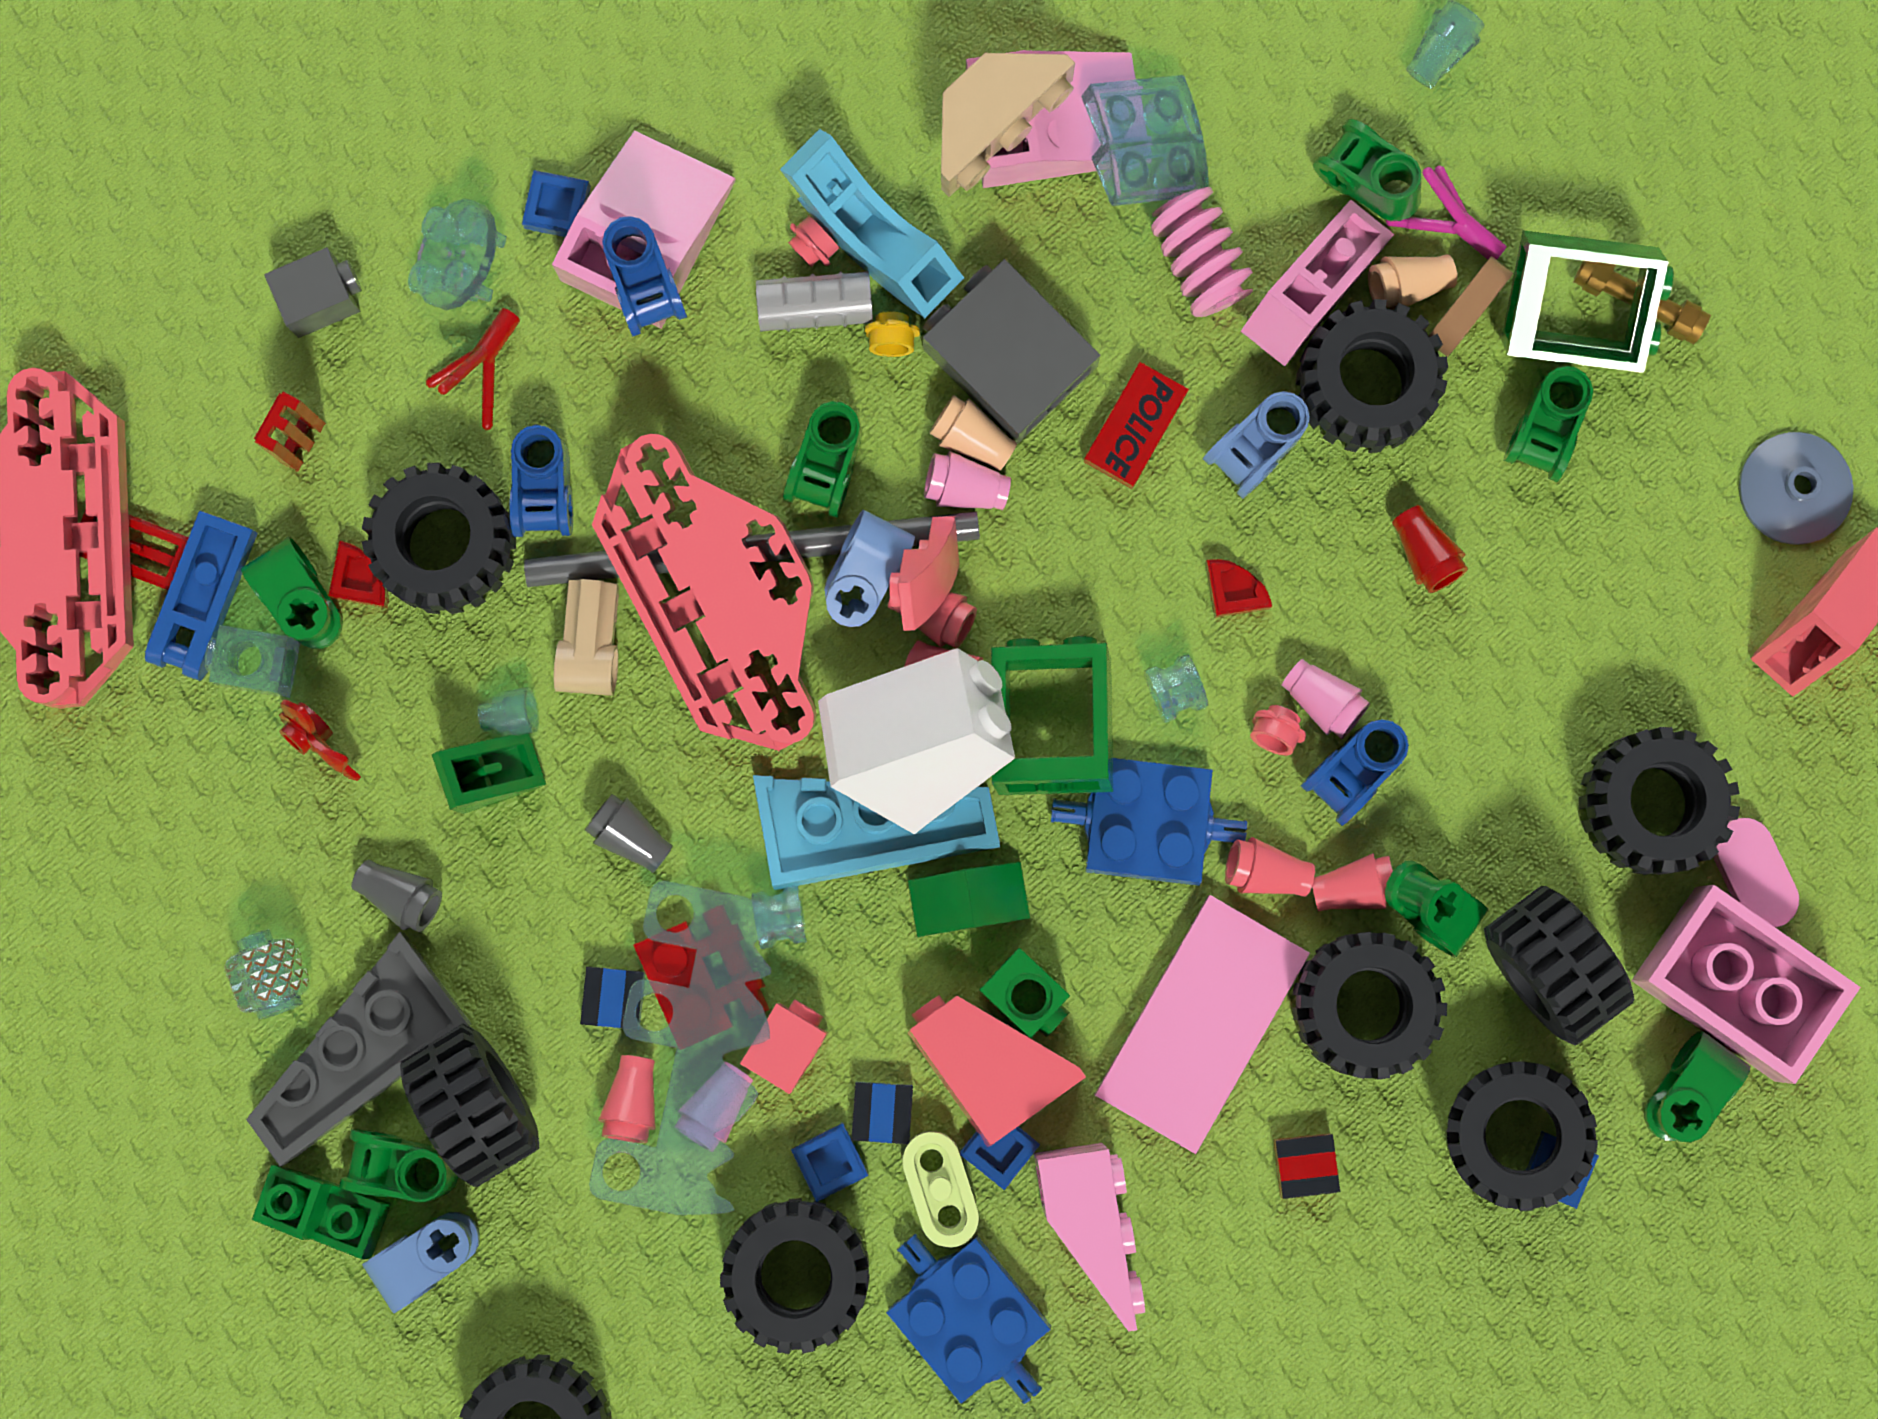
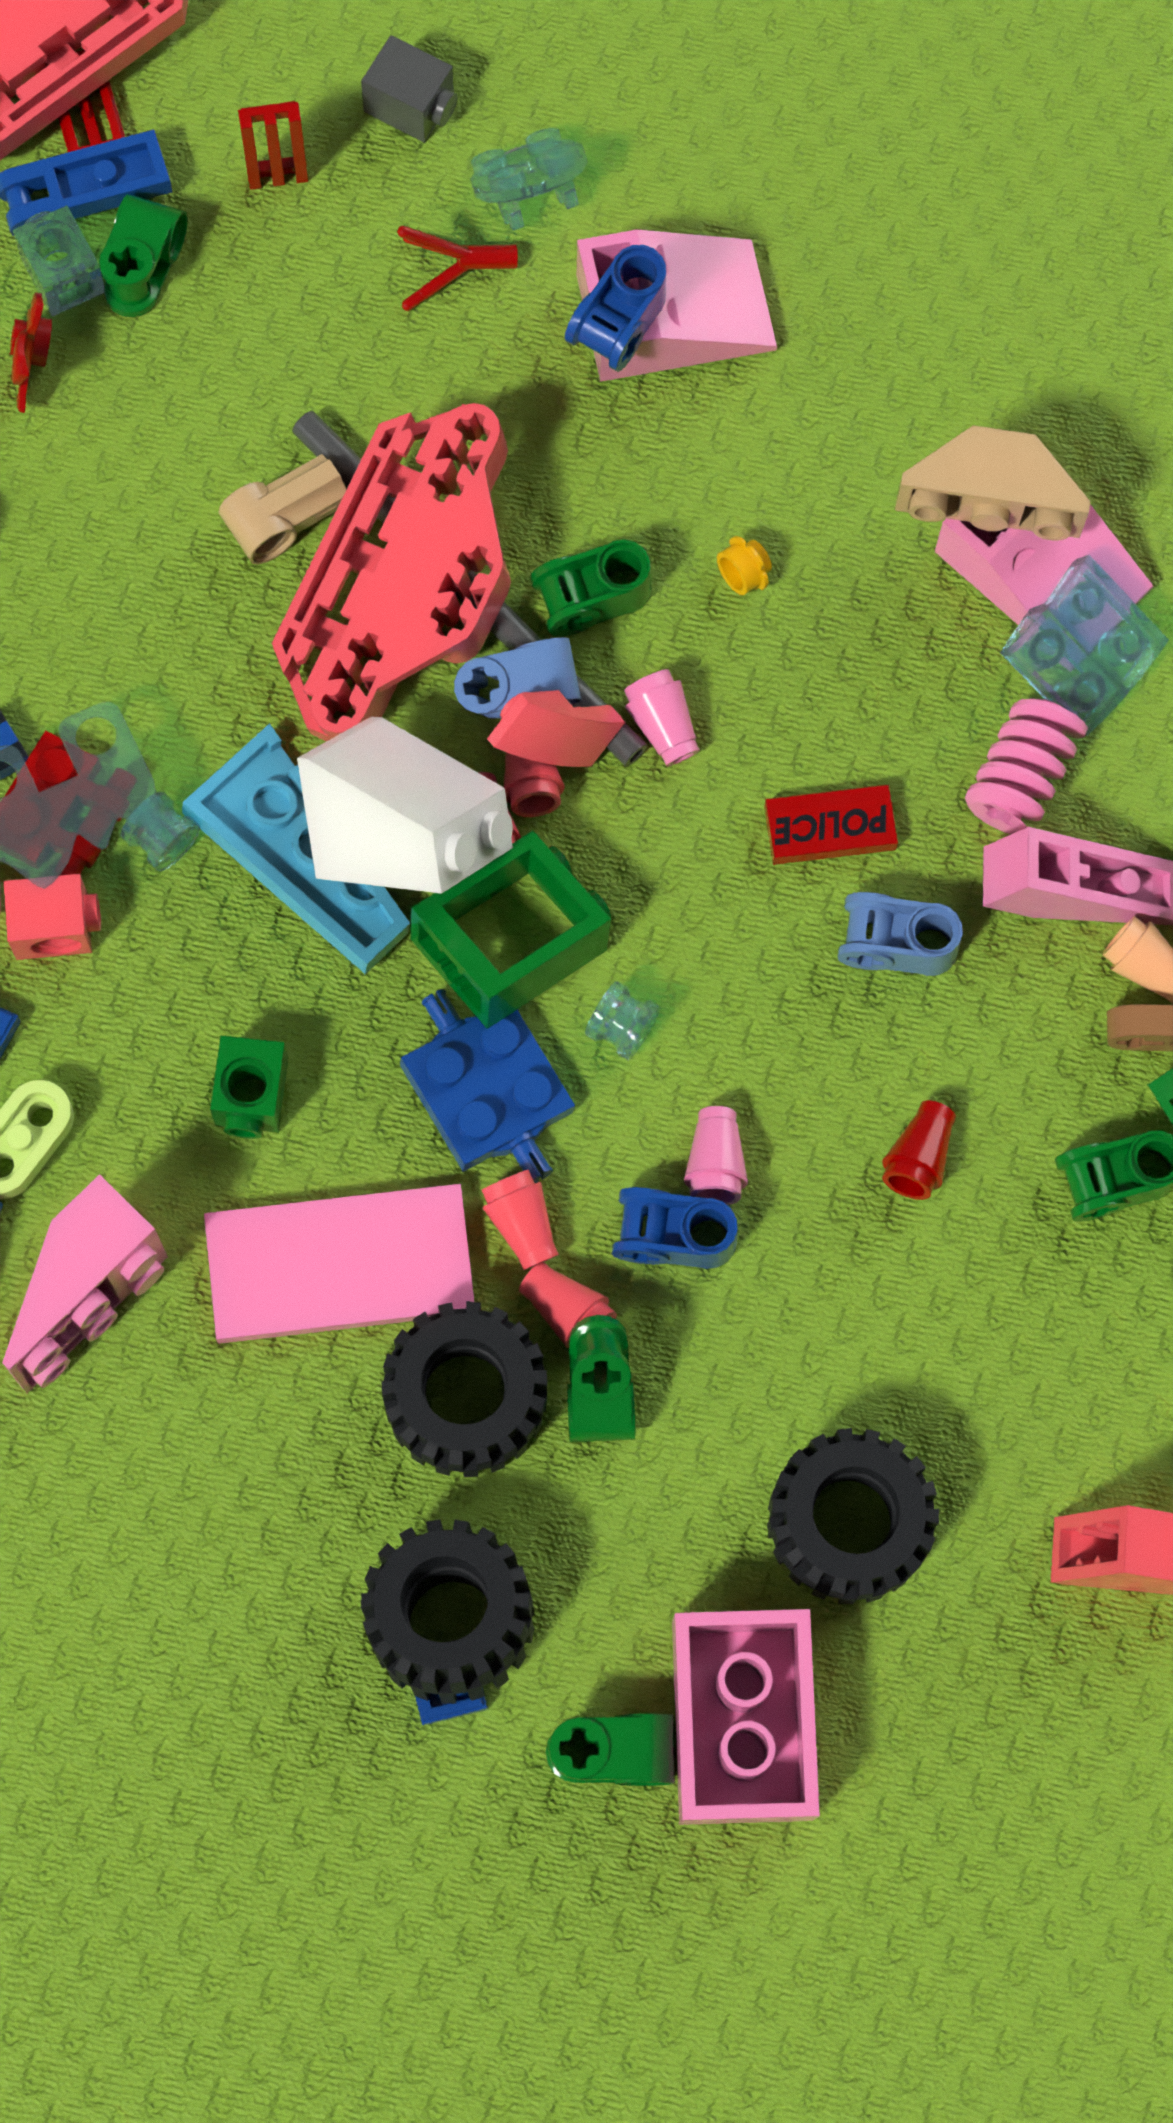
camera: 50 degrees right, 10 degrees down
(354, 580) = (195, 295): red tile -> none
(400, 512) = (268, 284): black tyre -> none
(488, 771) = (103, 504): green slope -> none
(509, 713) = (172, 492): clear light blue hose -> none
(540, 487) = (380, 384): blue piece -> none
(554, 202) = (636, 212): blue tile -> none
(626, 832) = (139, 657): dark grey cone -> none
(812, 242) = (772, 446): coral plate -> none
(814, 301) = (721, 481): light grey axle -> none
(867, 228) = (821, 469): medium azure arch -> none
(882, 1112) = (53, 1043): tile -> none
(969, 899) = (301, 983): green slope -> none
(970, 432) = (711, 688): light nougat cone -> none
(989, 1066) = (158, 1102): coral slope -> none
(1003, 1158) = (94, 1155): blue tile -> none
(1009, 349) = (809, 669): dark grey brick -> none
(1234, 589) = (752, 1013): red tile -> none
(1277, 730) = (654, 1136): coral plate -> none
(1306, 1165) = (279, 1449): tile -> none
(1399, 340) = (1043, 936): black tyre -> none
(1559, 965) = (627, 1523): black tyre -> none
(1757, 872) = (859, 1663): bright pink tile -> none

